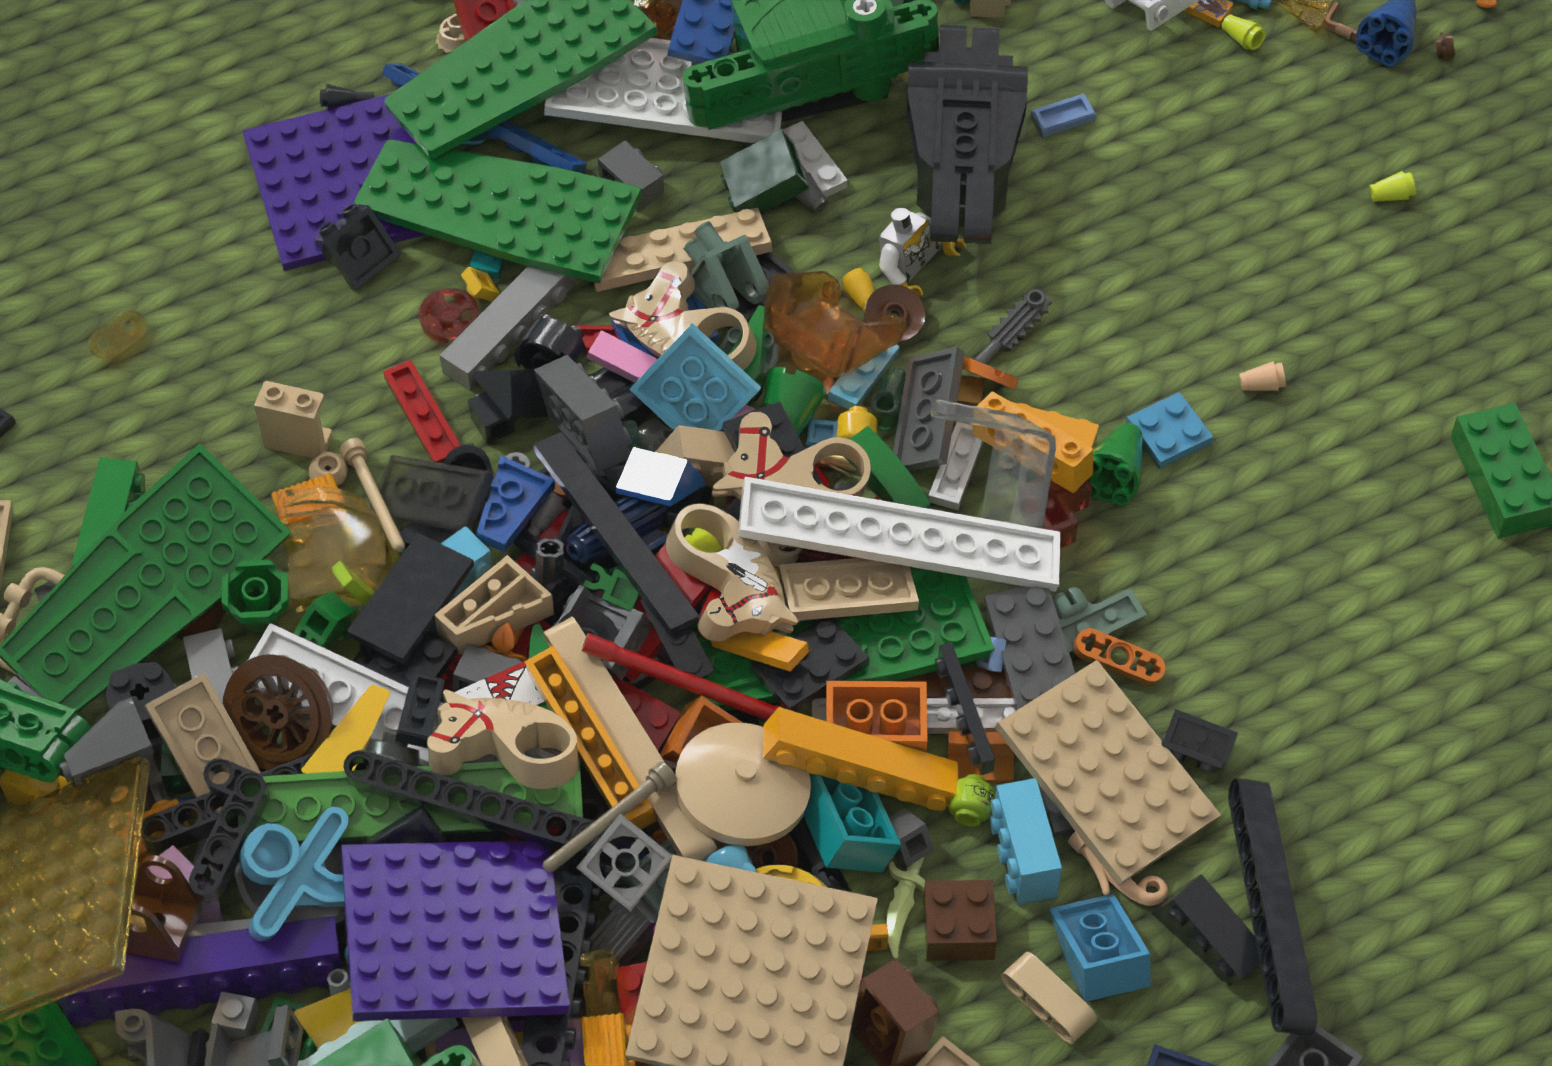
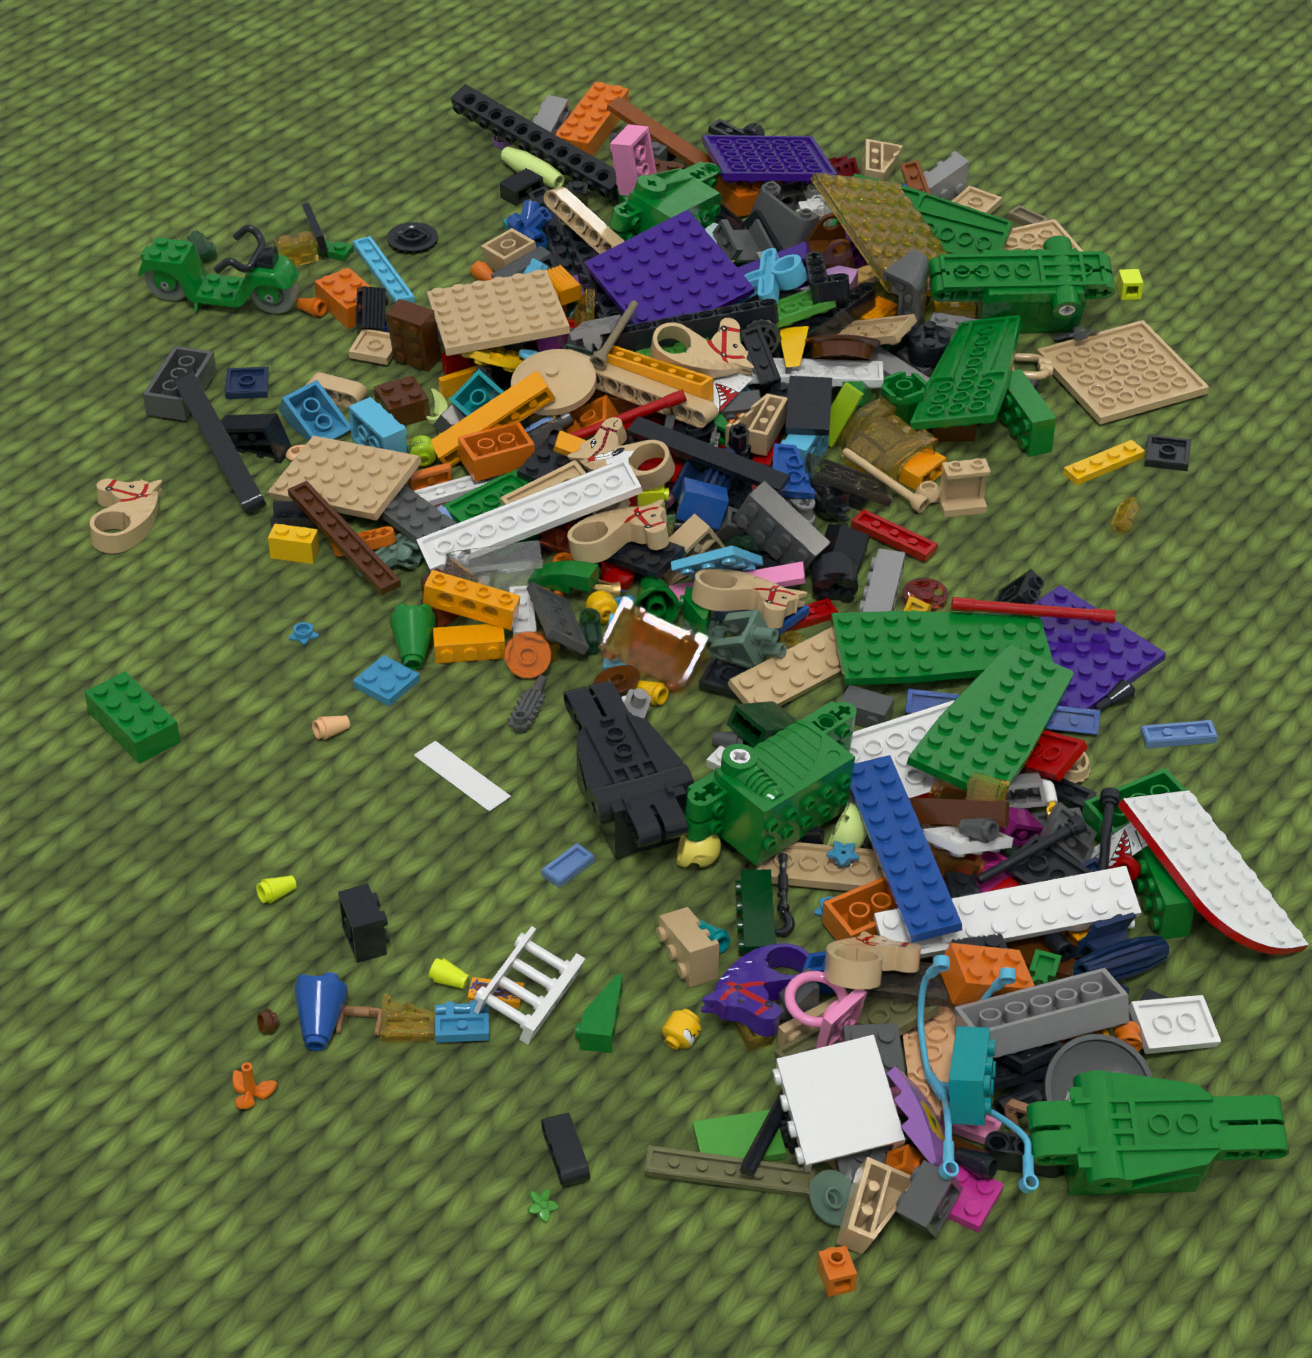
camera: 155 degrees right, 15 degrees down
(64, 440) = (1104, 462): none -> yellow plate
(312, 38) = (1178, 734): none -> medium blue tile
(430, 221) = (1094, 615): none -> red piece
(968, 721) = (445, 466): black plate -> none
(1130, 272) = (462, 775): none -> white sticker
(1152, 646) = (344, 538): none -> reddish brown plate
(1216, 687) = (293, 543): none -> yellow brick
(1248, 539) = (303, 633): none -> dark azure plate
(1316, 93) = (363, 922): none -> black brick
(1420, 849) = (130, 509): none -> tan animal

